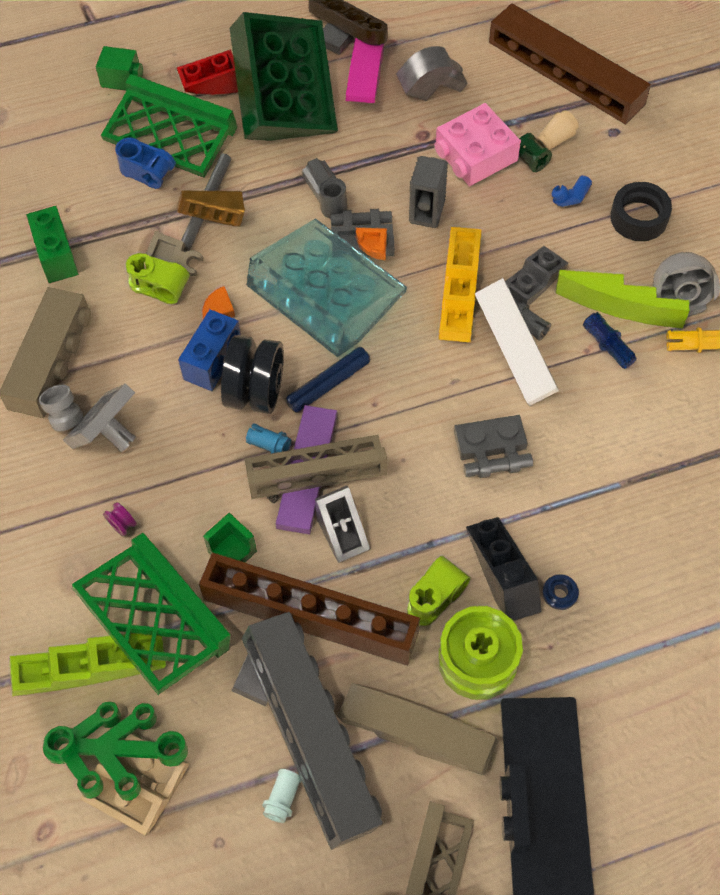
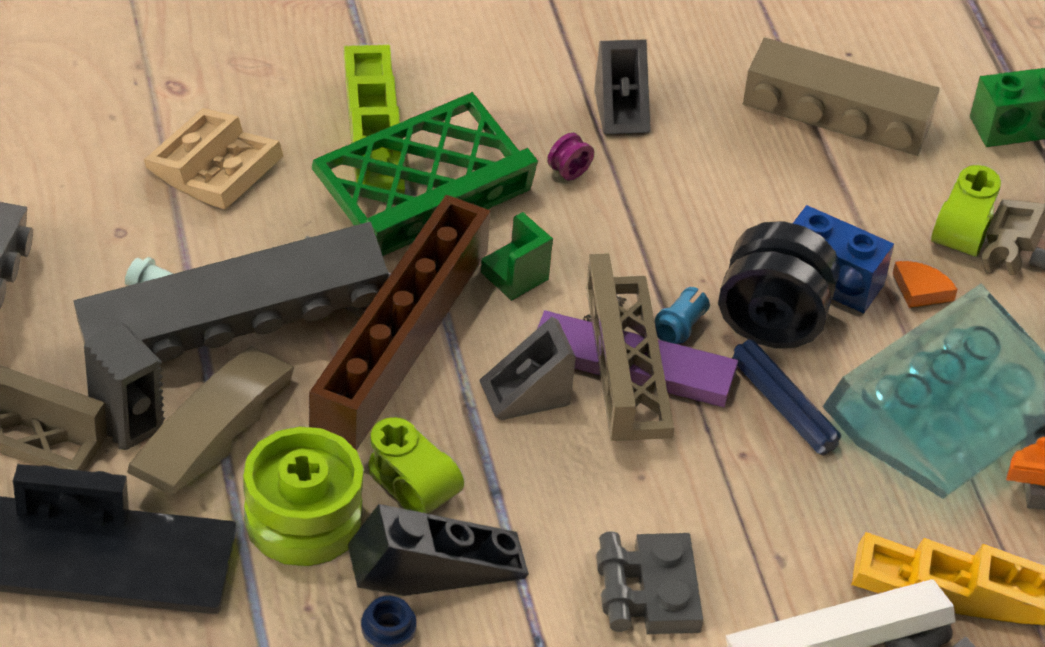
camera: 90 degrees right, 15 degrees down
(49, 488) = (623, 86): none -> flat silver slope
(60, 406) = (744, 102): light grey wheel -> none
(101, 419) = (718, 134): light grey tile -> none
(110, 746) = (267, 90): green plant -> none
(410, 789) = (128, 381): none -> dark grey brick

